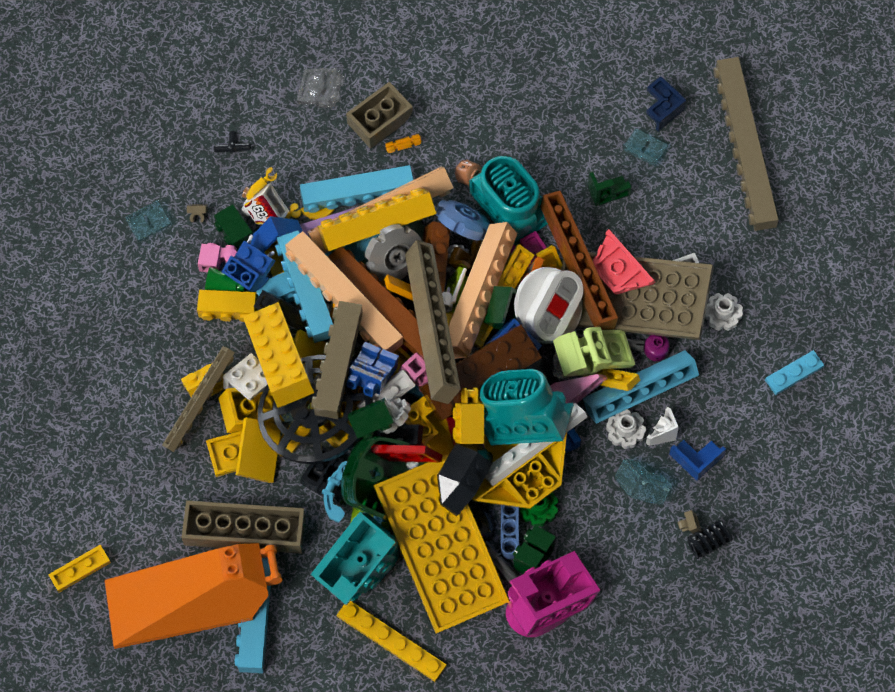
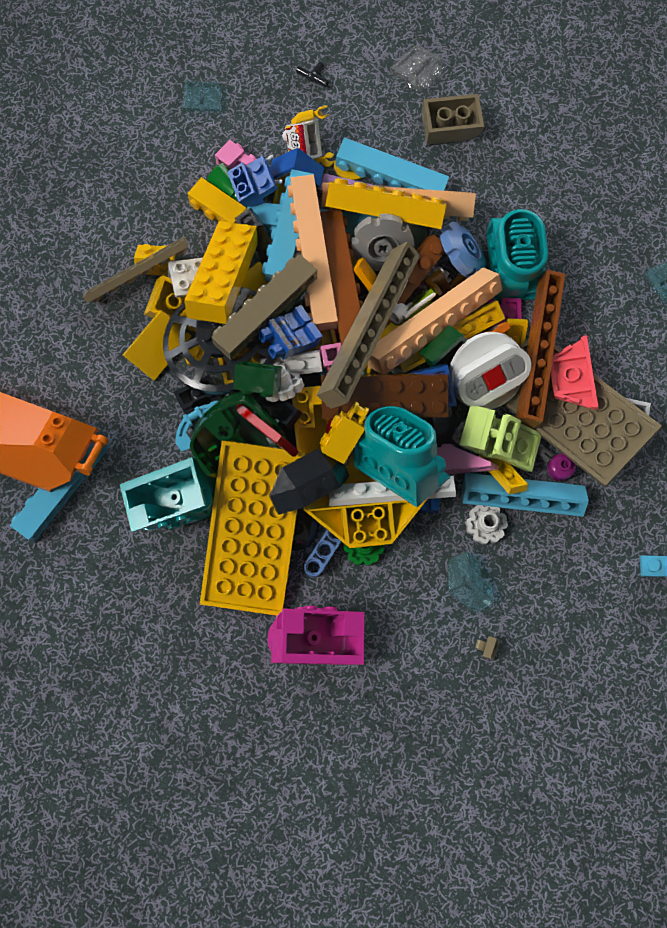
camera: 25 degrees right, 10 degrees up
(197, 209) = (246, 110): dark tan tile -> none
(224, 453) = (128, 329): yellow tile -> none
(232, 226) = (266, 140): dark green brick -> none
(233, 524) = (100, 404): dark tan brick -> none
(392, 641) = (159, 586): yellow plate -> none
(403, 143) = (457, 156): light orange axle -> none
(467, 170) = (494, 209): nougat head -> none
(500, 564) = (297, 579): dark grey axle -> none
(535, 549) = (331, 586): dark green piece -> none
(607, 190) = (608, 300): dark green panel -> none
(665, 430) = (520, 547): white slope -> none
(697, 463) = (529, 594): blue panel -> none
(708, 537) = (495, 672): black piece -> none
(723, 311) = (642, 472): white plant -> none

